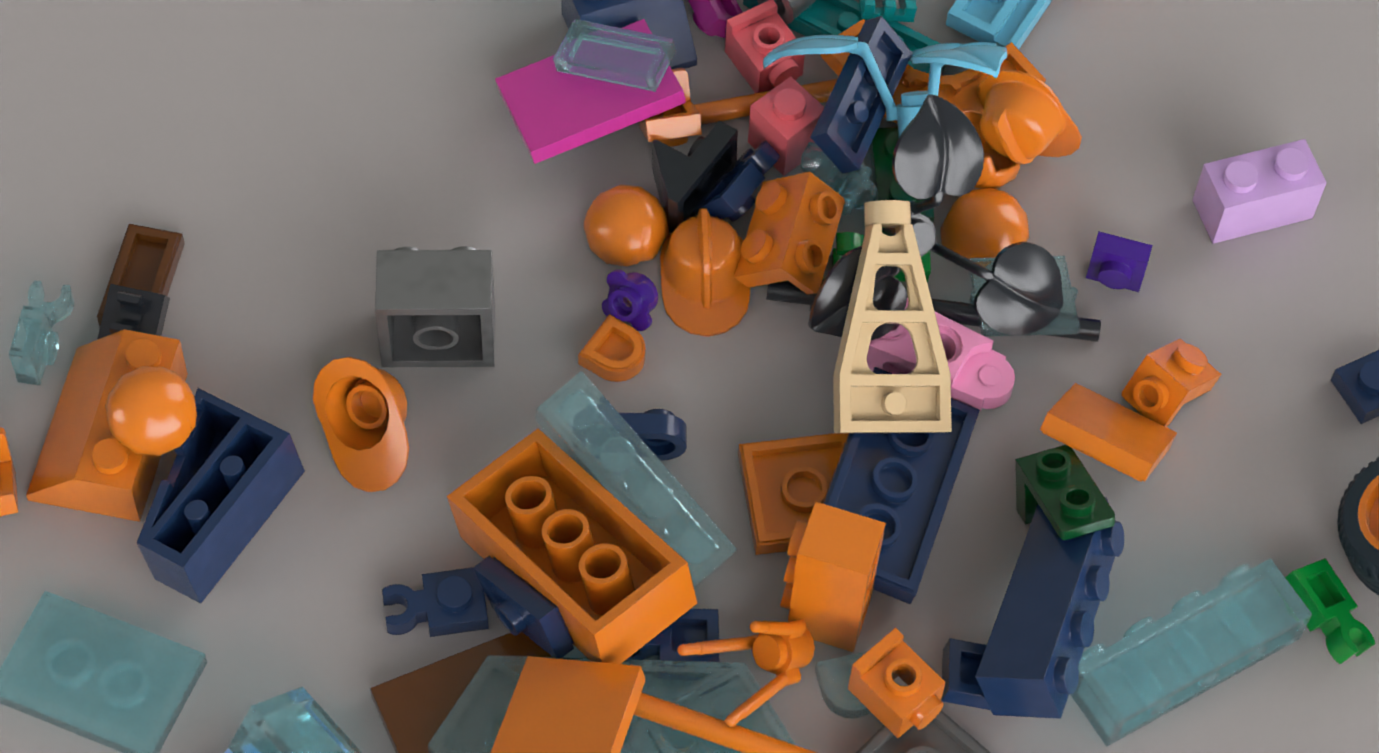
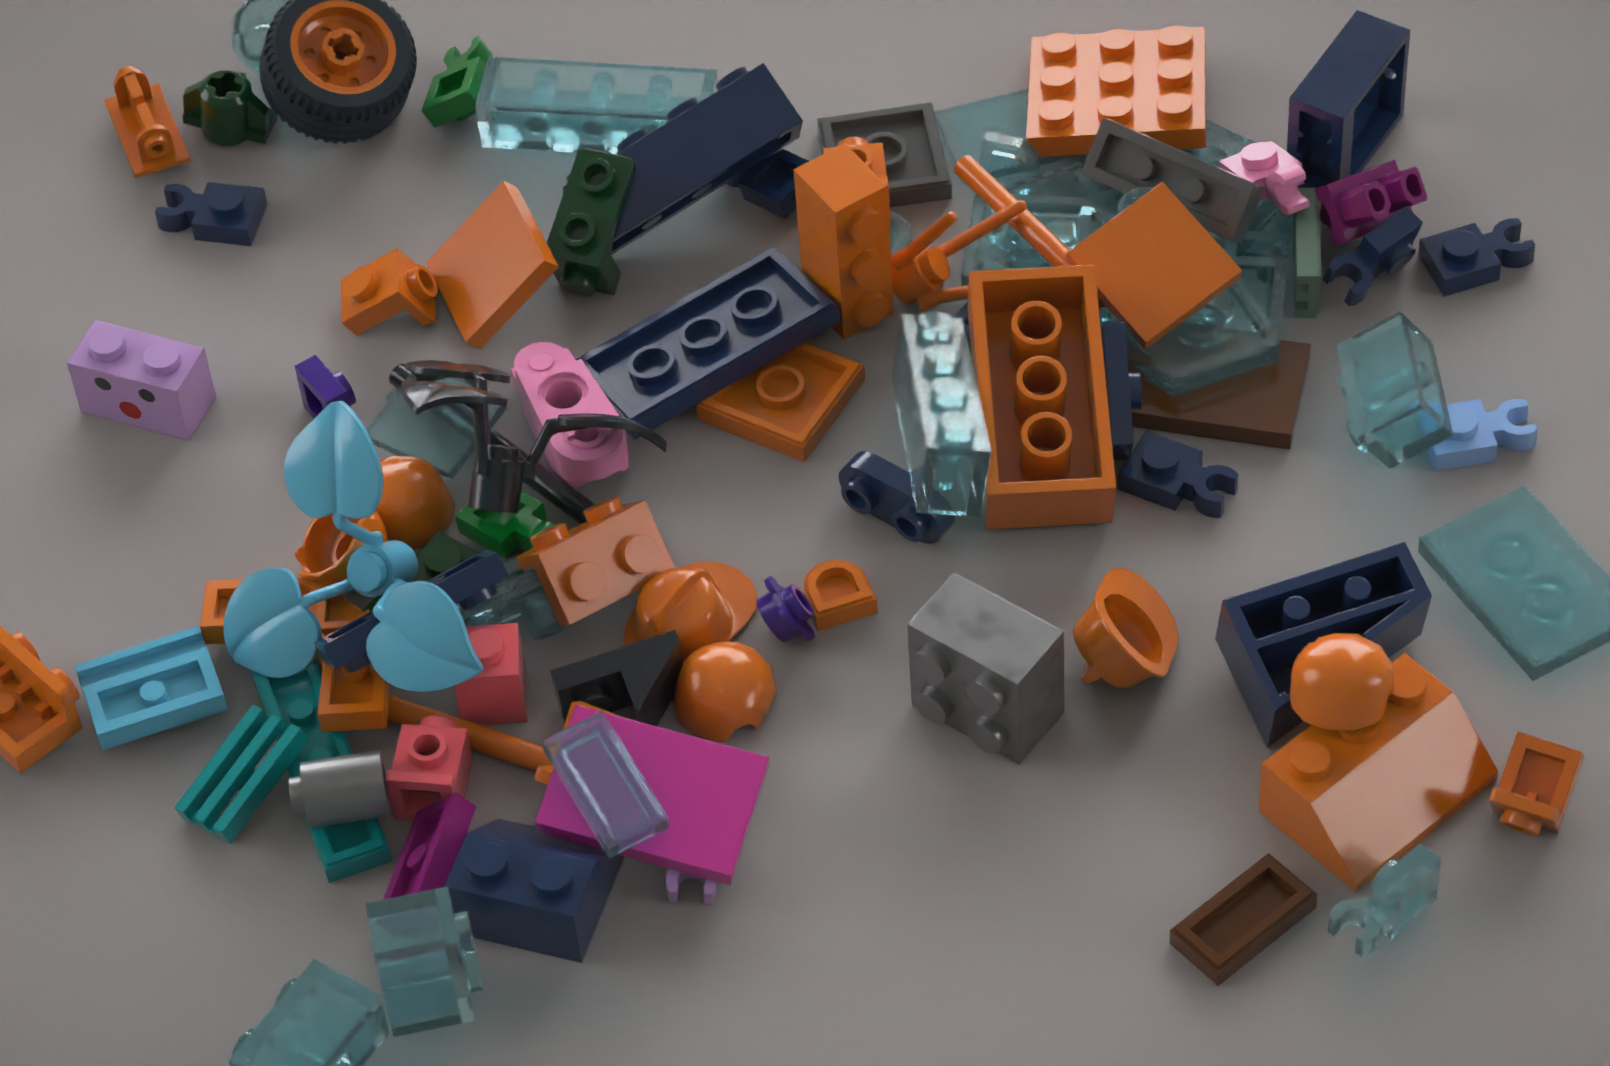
camera: 135 degrees left, 10 degrees down
(133, 311) = (1286, 850): black tile -> none
(733, 191) = (588, 638): dark blue plate -> none
(891, 401) = (643, 369): tan plate -> none
(1025, 118) = (281, 523): orange piece -> none

